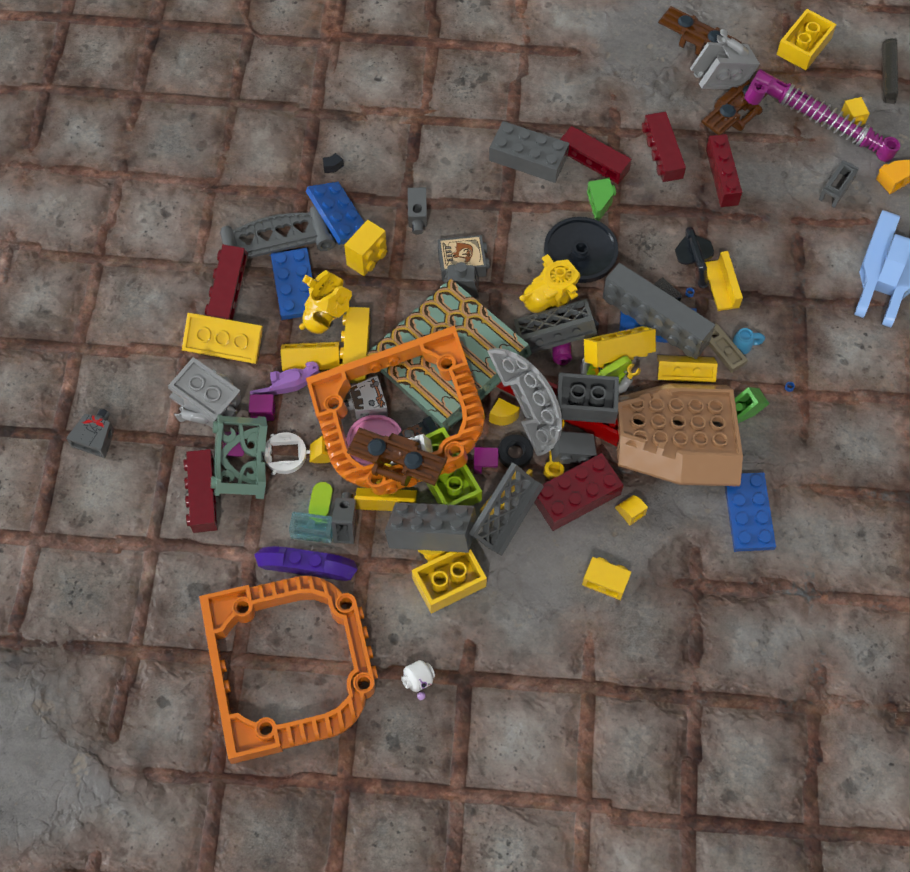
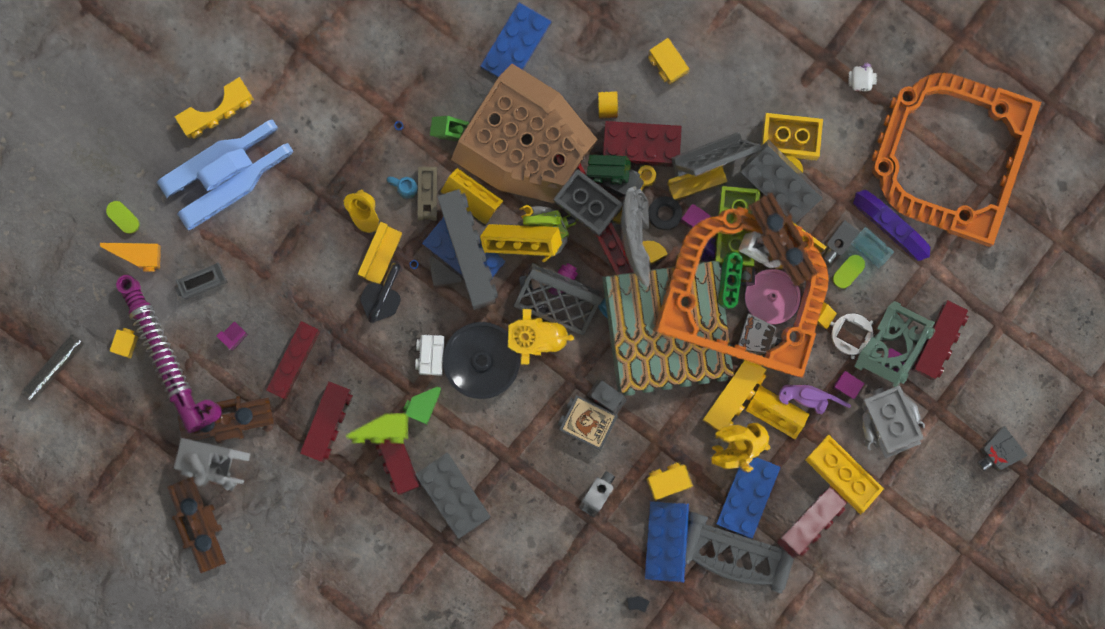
camera: 150 degrees left, 20 degrees up
(413, 410) = (737, 279): none -> green beam
(590, 442) = (608, 169): none -> dark green brick
(616, 148) = (387, 427): none -> lime slope
(627, 236) = (431, 355): none -> white brick
(765, 305) = (362, 210): none -> yellow piece
(783, 161) = (232, 336): none -> magenta panel
(806, 39) = (103, 449): yellow brick -> none

